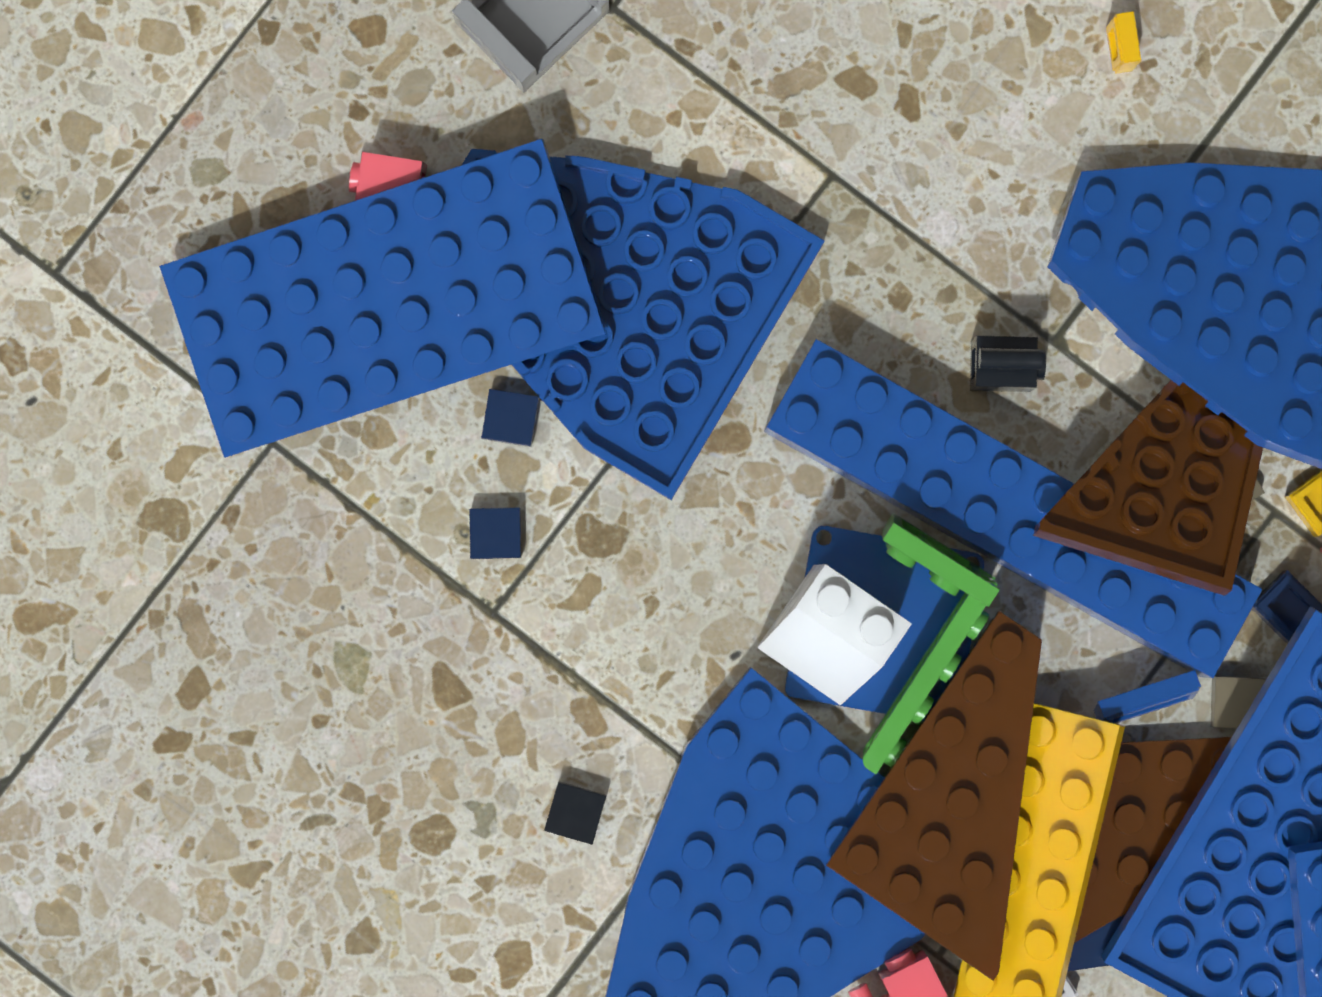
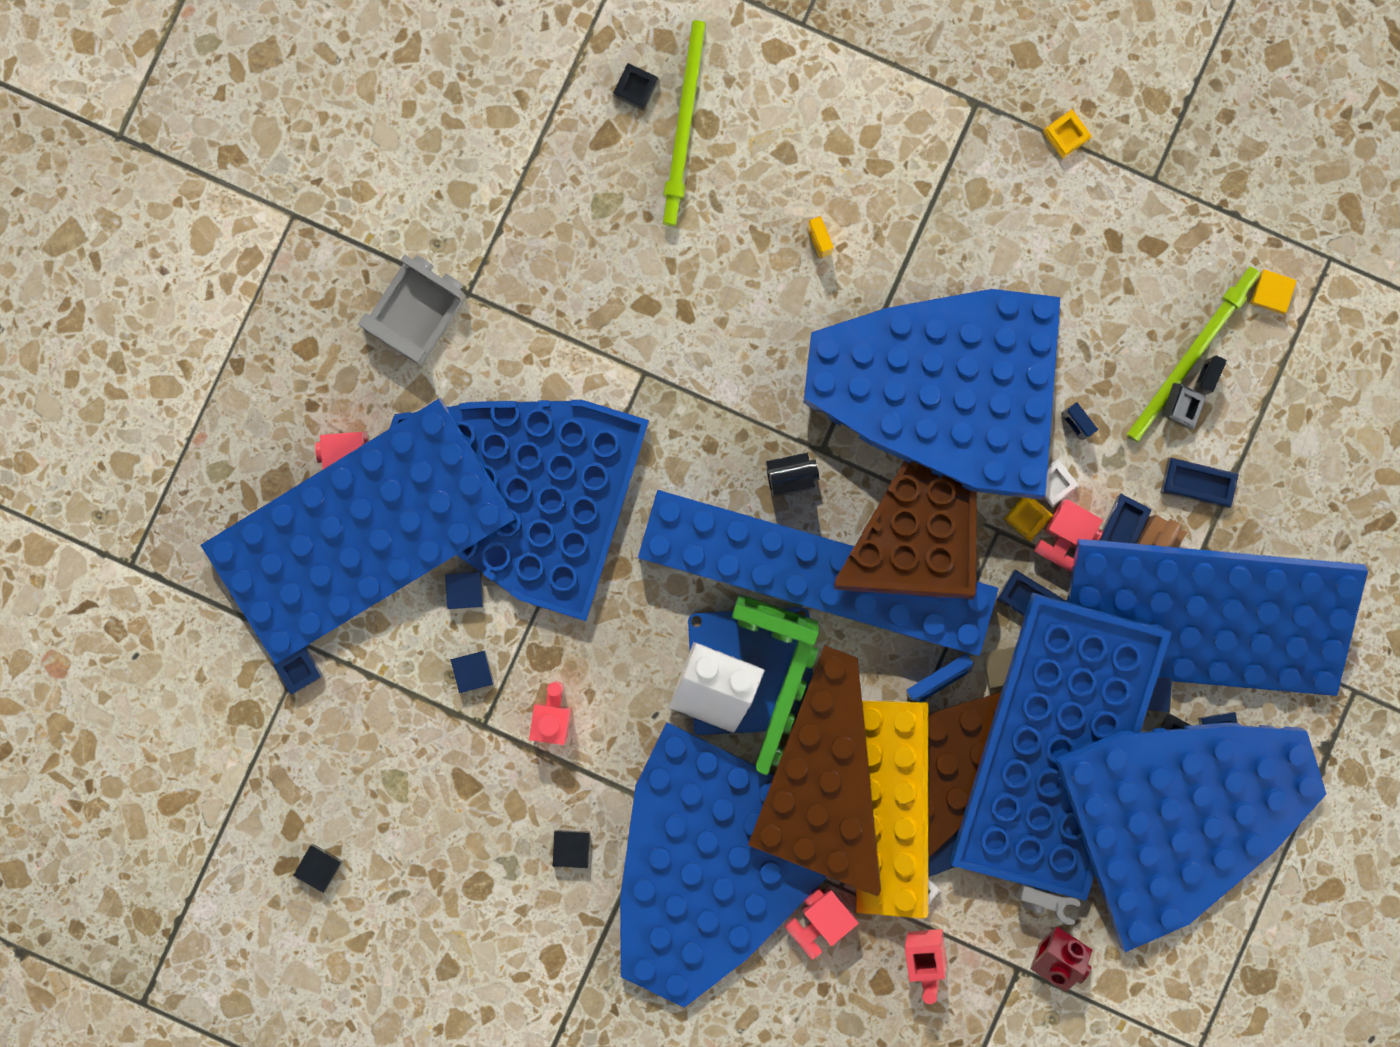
camera: 10 degrees left, 0 degrees up
(216, 755) = (318, 868): none -> black tile
(253, 474) = (298, 670): none -> dark blue tile
(590, 626) = (551, 720): none -> coral brick

